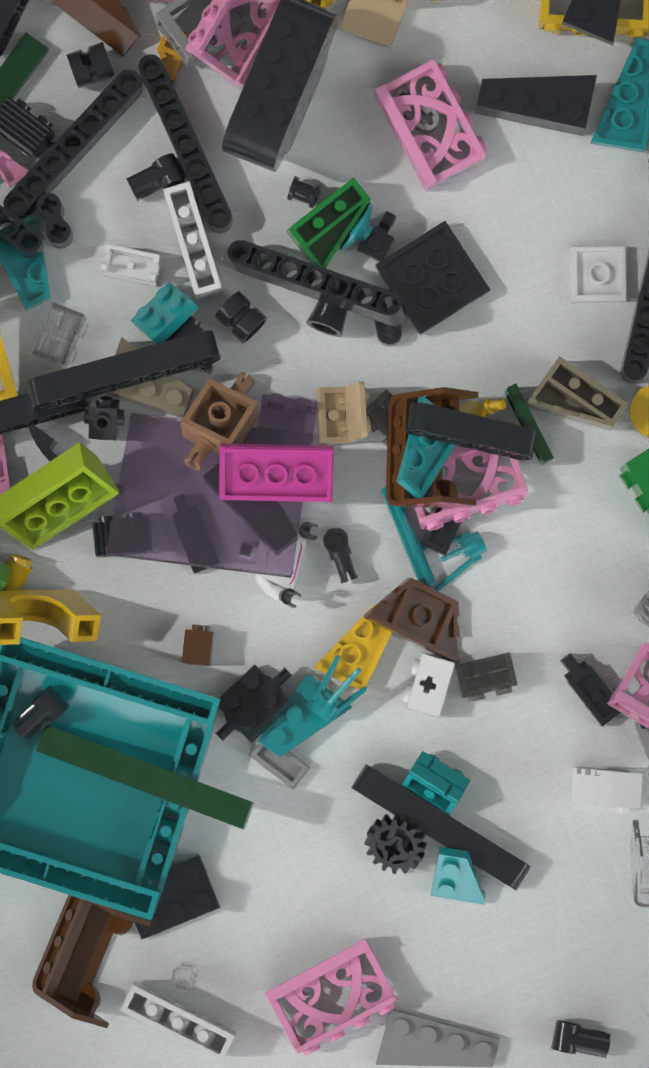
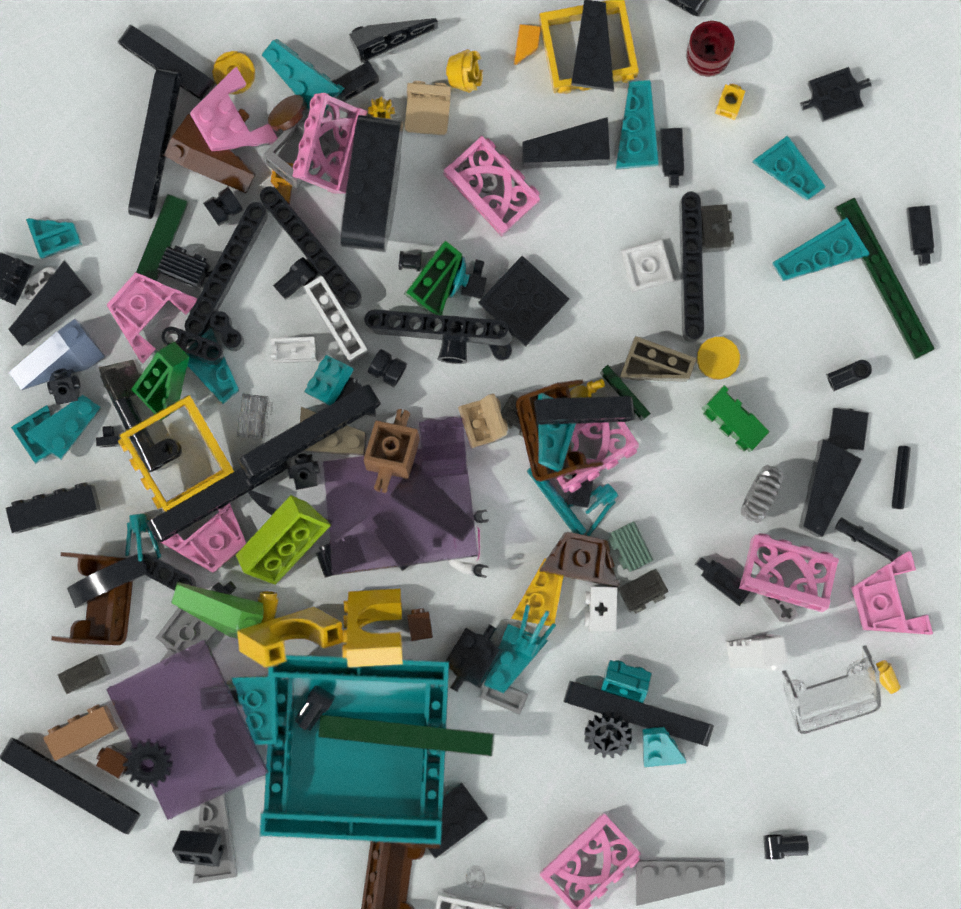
camera: 25 degrees left, 0 degrees up
(136, 607) = (366, 647): none -> yellow arch
(276, 472) = (445, 479): dark pink tile -> none
(341, 555) = (510, 528): black pin -> none
(485, 617) = (630, 547): none -> sand green brick

